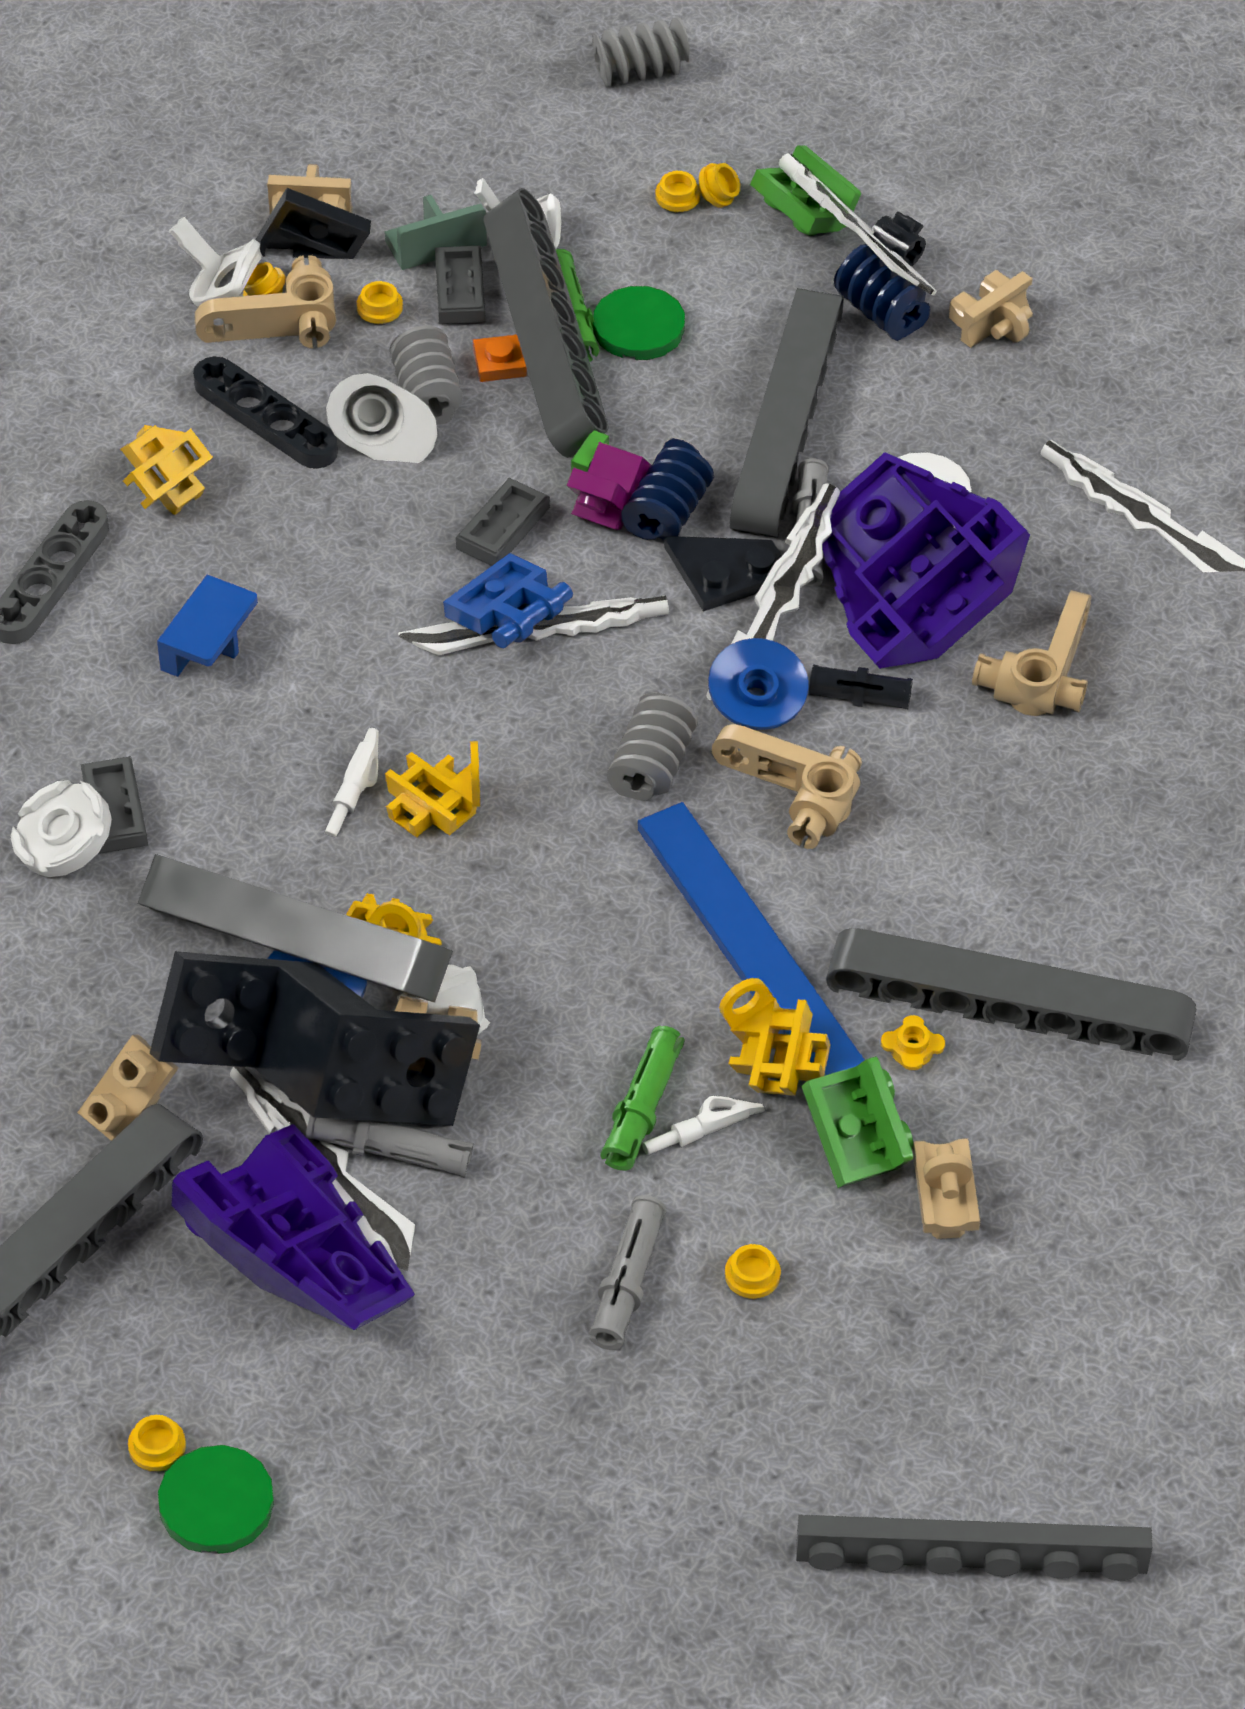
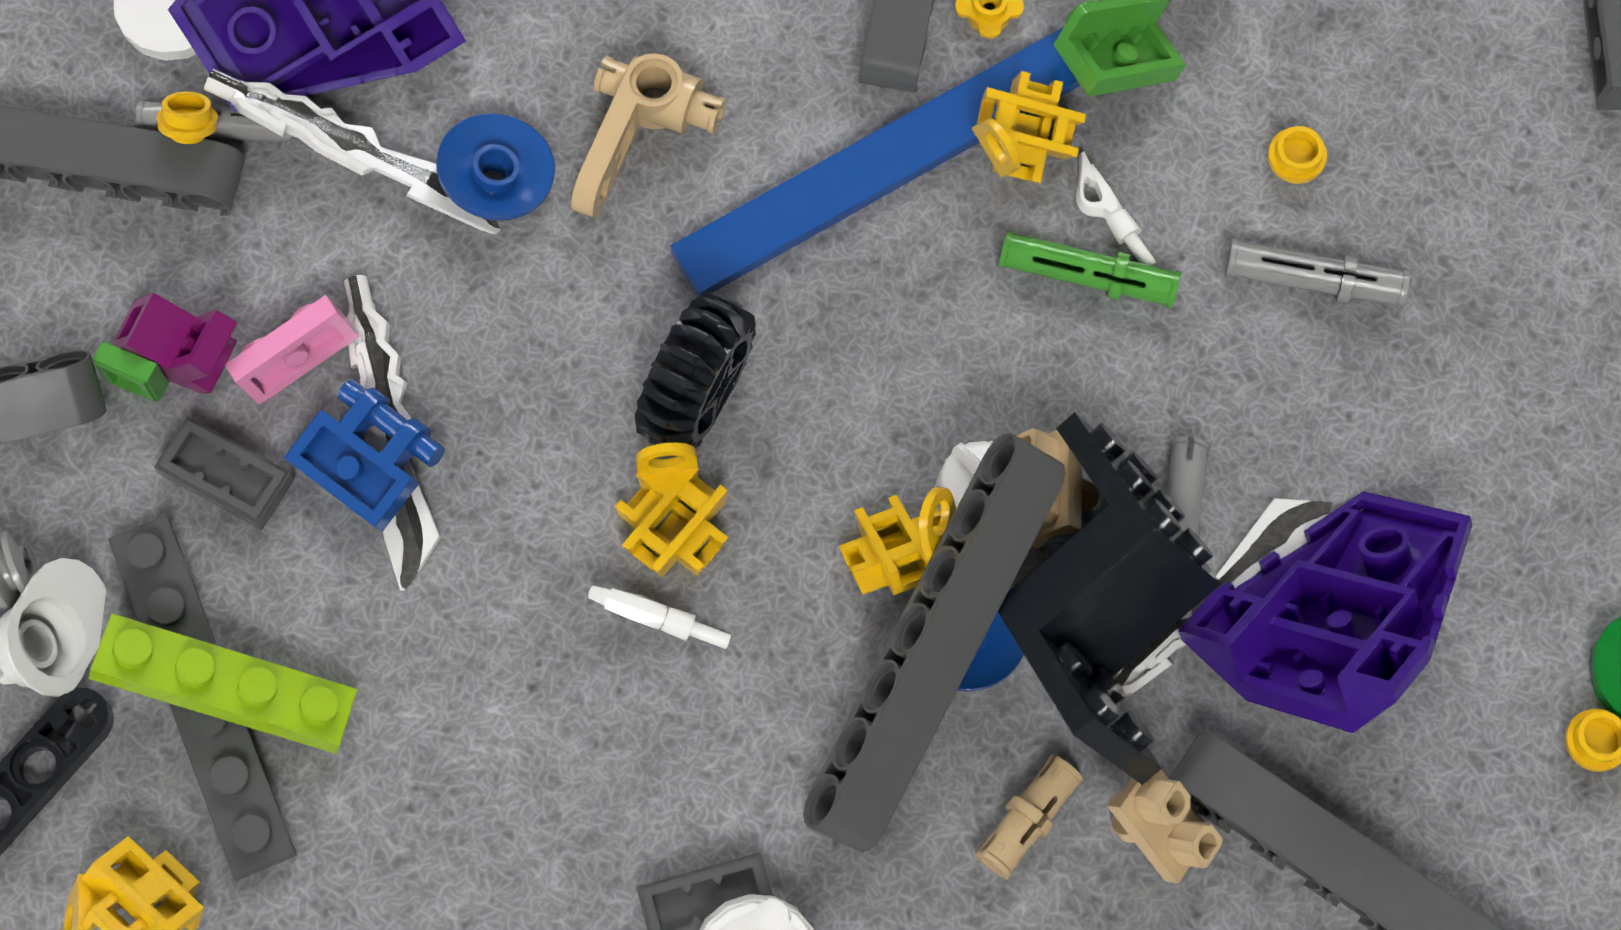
camera: 95 degrees left, 20 degrees up
(127, 1001) = (1029, 816): none -> tan pin
(205, 625) = (421, 812): blue panel -> none
(324, 513) = (218, 750): none -> dark grey plate
(324, 513) = (223, 683): none -> lime plate
(551, 793) = (695, 371): none -> black gear
(599, 554) = (291, 349): none -> bright pink plate
(652, 747) = (595, 276): light grey piece -> none
(668, 492) = (181, 276): dark blue piece -> none
(721, 568) = (295, 216): black wing -> none
(798, 478) = (187, 117): none -> yellow plate
(894, 693) = (485, 61): black pin -> none

